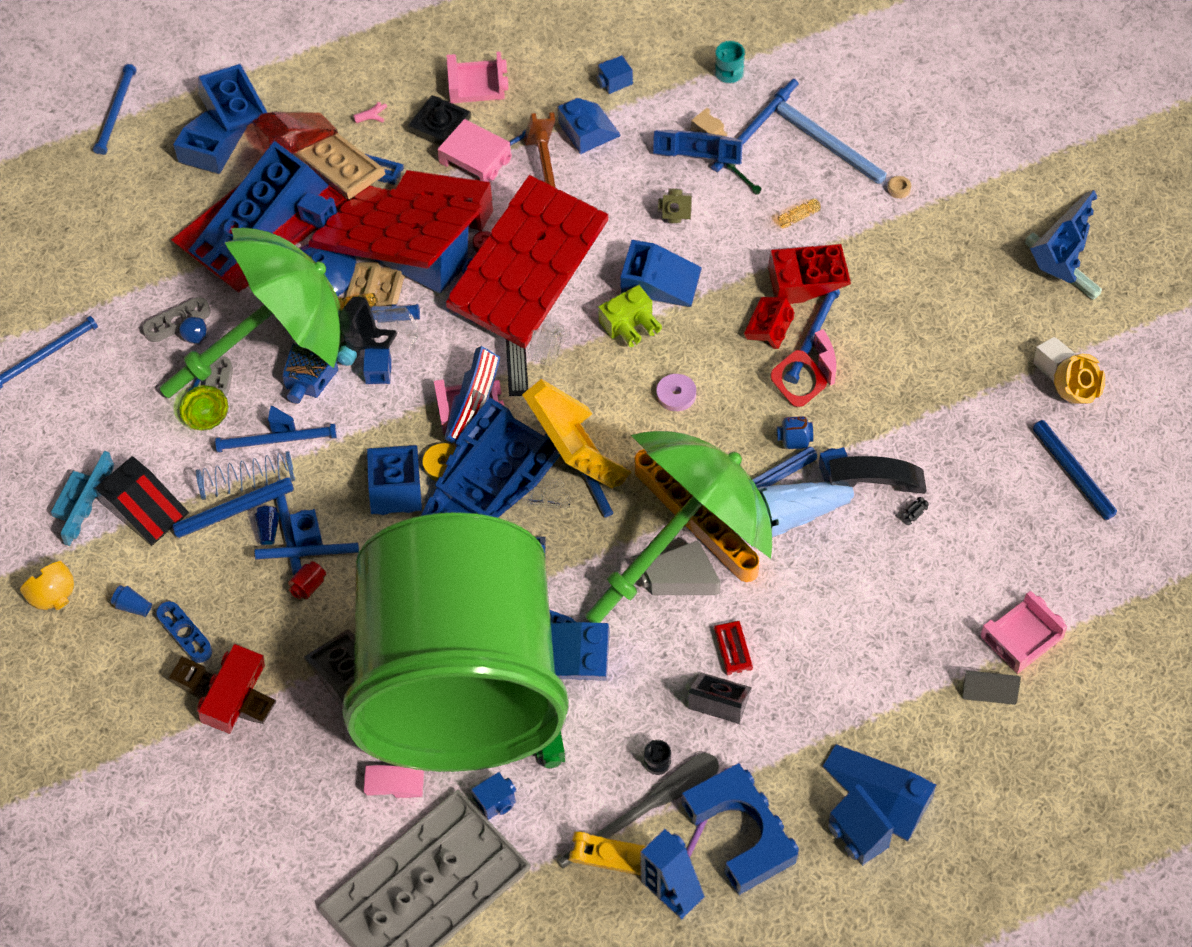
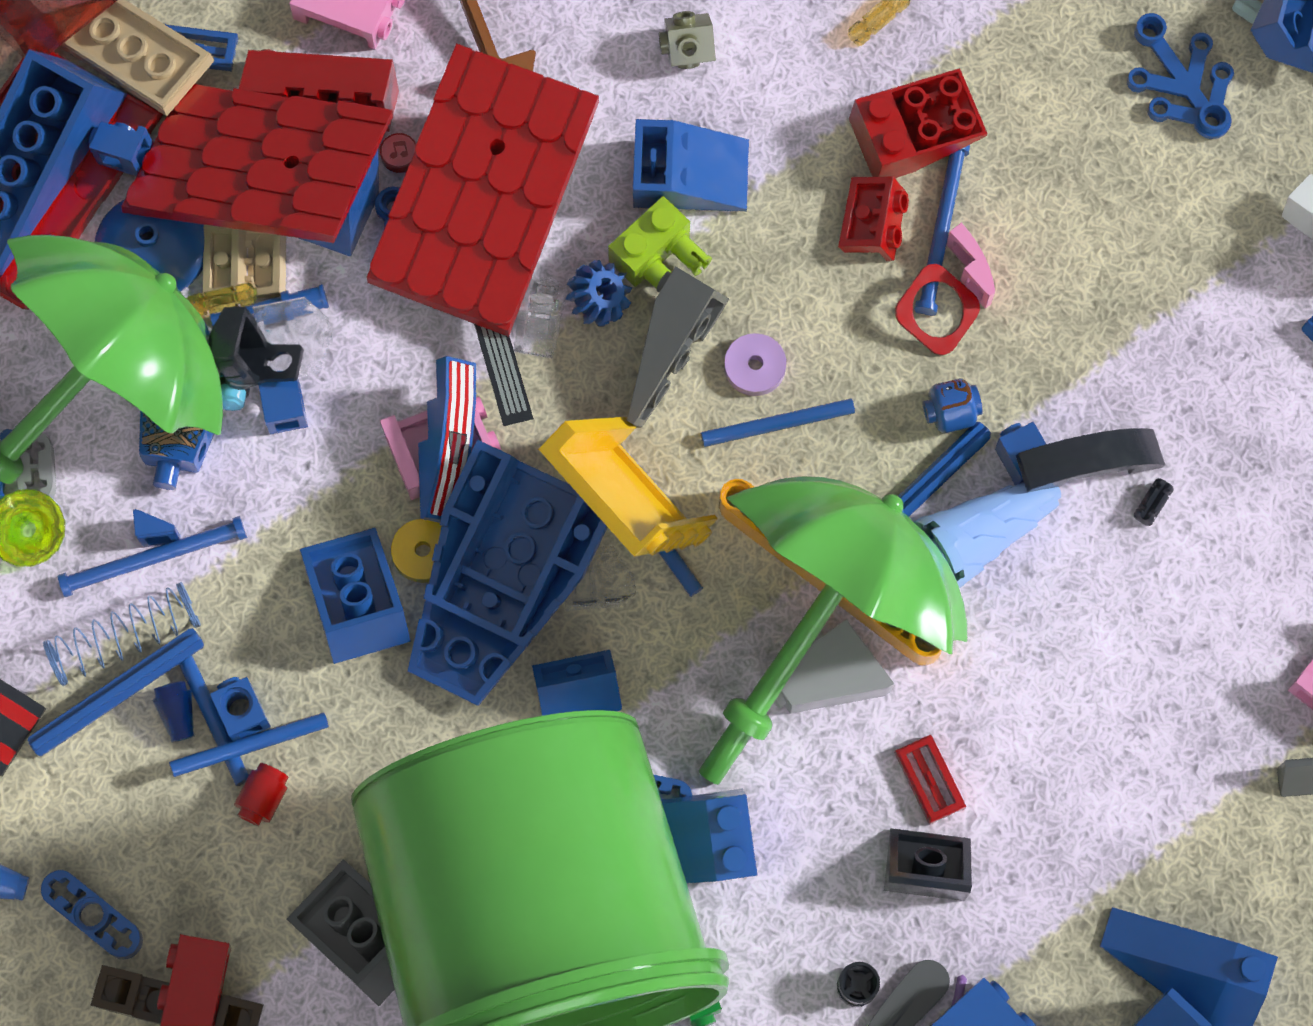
camera: 15 degrees left, 15 degrees up
(586, 334) = (596, 307): none -> blue gear
(634, 353) = (680, 315): none -> dark grey wedge
(685, 427) = (777, 422): none -> blue bar
(983, 277) = (1183, 82): none -> blue plant

